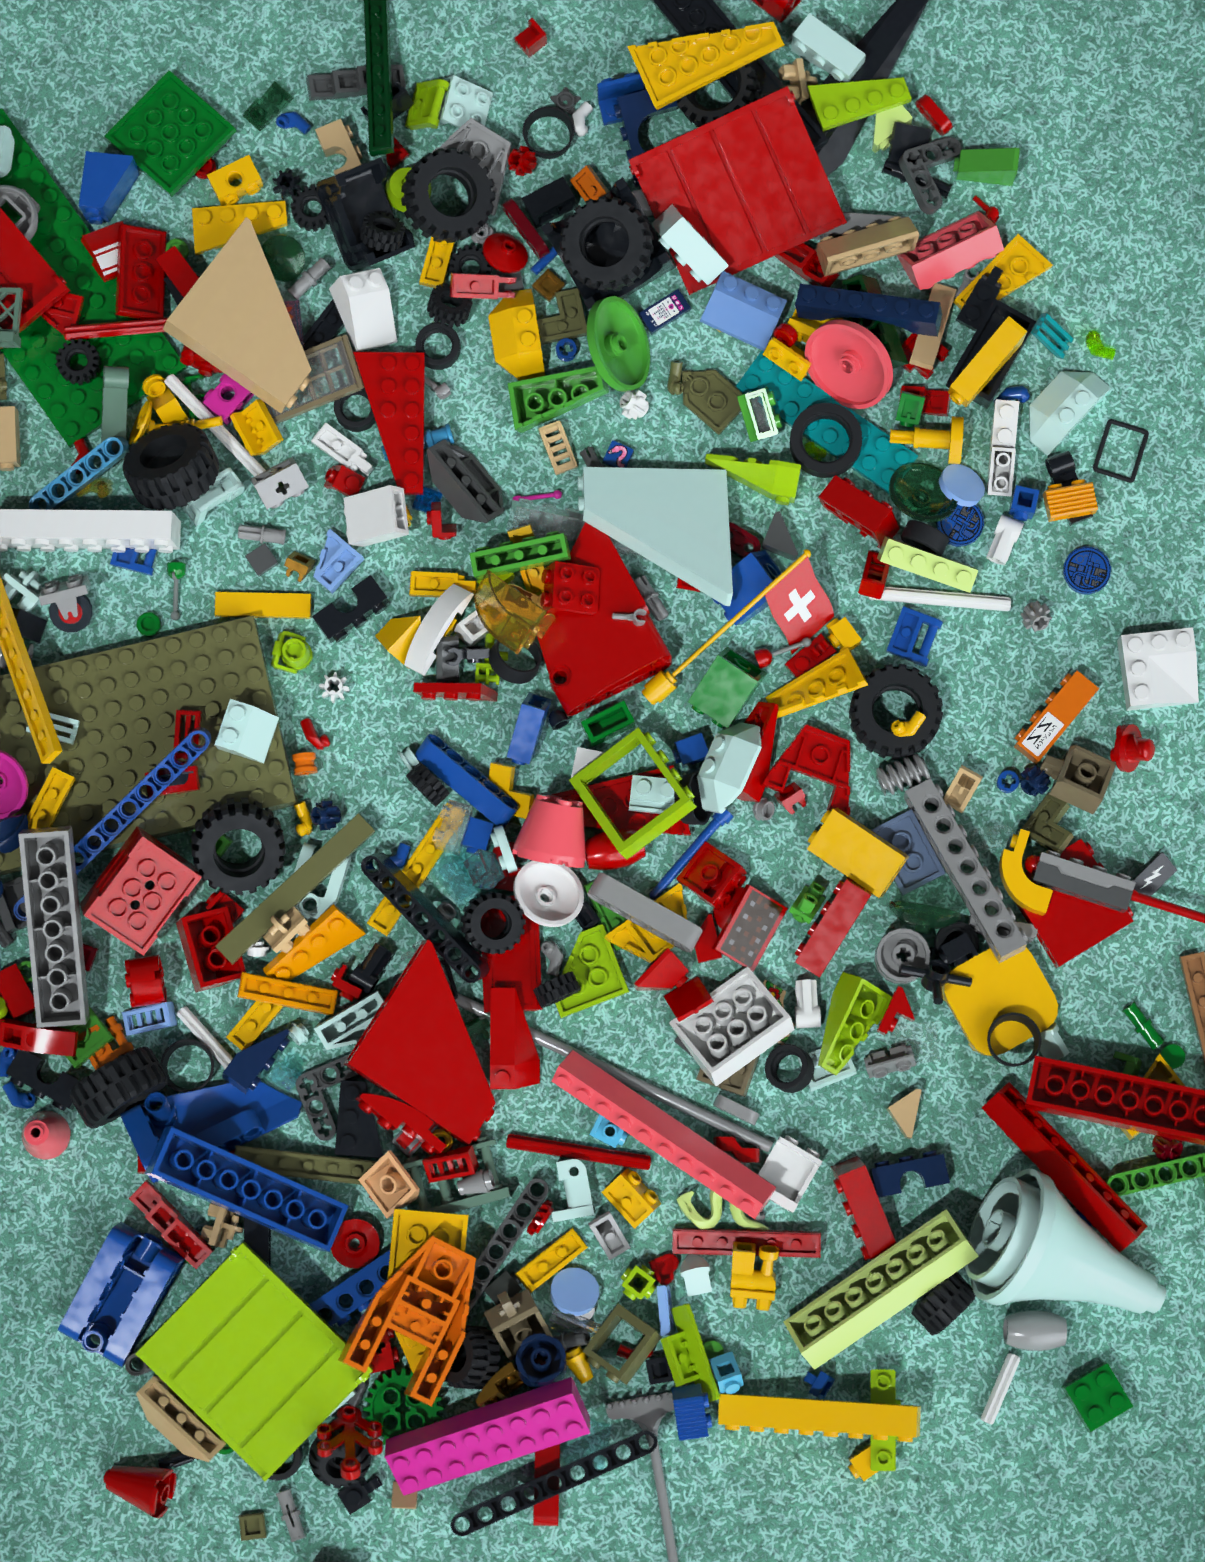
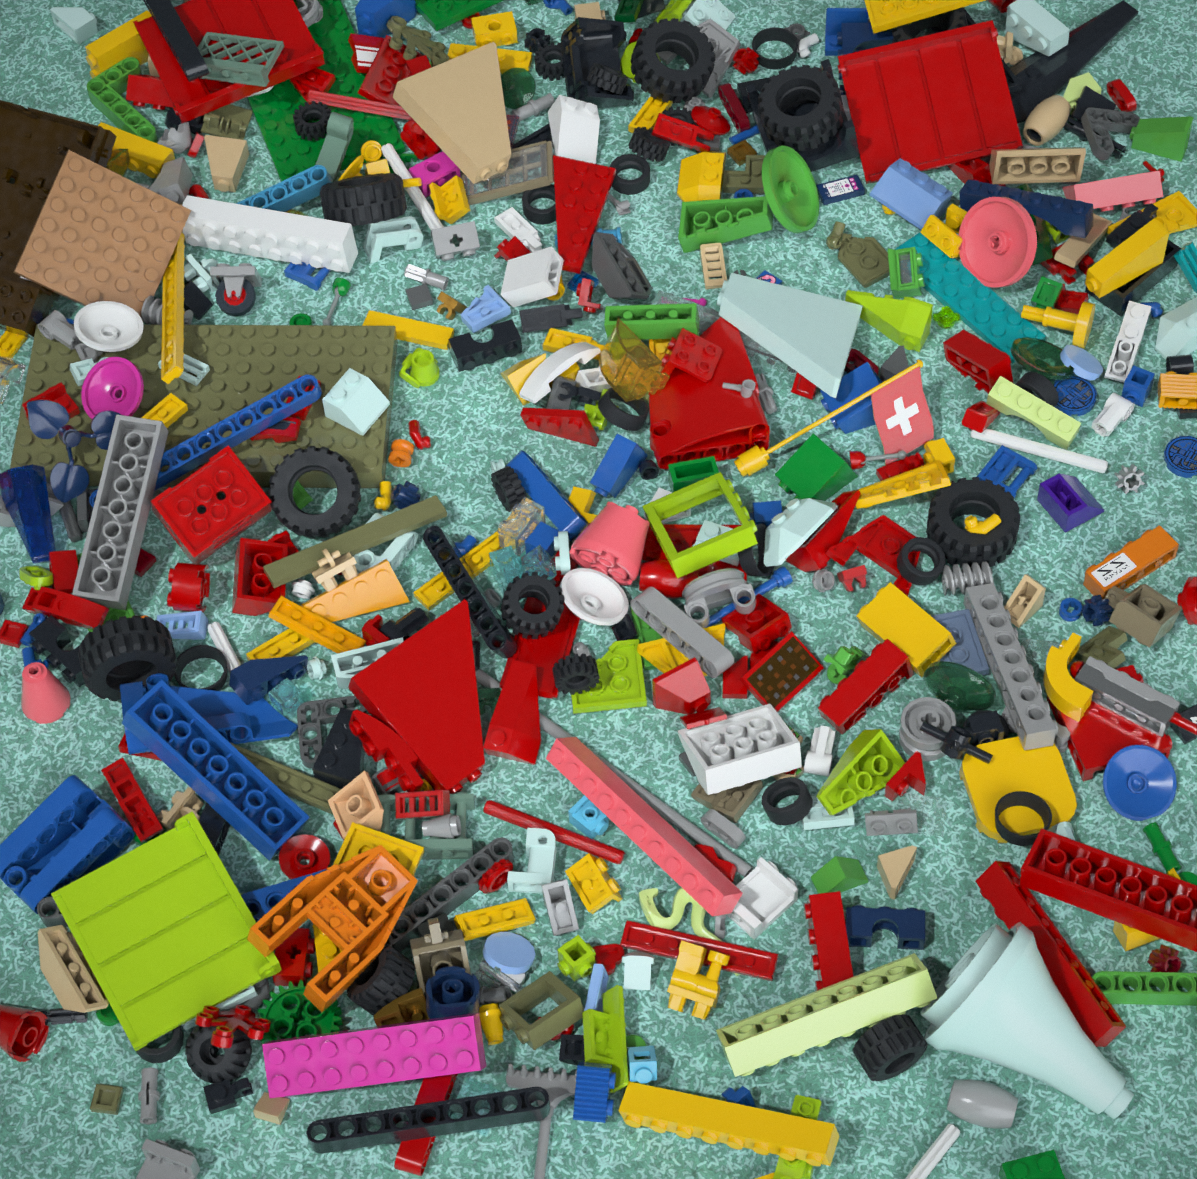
camera: 15 degrees right, 25 degrees down
(132, 208) = (398, 27): none -> olive plant
(335, 680) = (449, 401): white gear -> none
(405, 557) = (548, 317): none -> black hinge
(634, 404) = (792, 246): white gear -> none
(666, 858) = (715, 591): none -> light grey piece
(689, 245) = (876, 133): light aqua wedge -> none
(786, 334) = (946, 215): red tile -> none
(832, 412) = (968, 280): black tyre -> none
(851, 101) = (1049, 66): lime wing -> none
(855, 1131) = (839, 875): none -> bright green slope
(862, 171) = (1046, 120): none -> tan piece
(869, 758) = (928, 547): none -> black tyre
(983, 657) = (1067, 501): none -> dark purple slope
(1110, 964) = (1139, 782): none -> blue hat

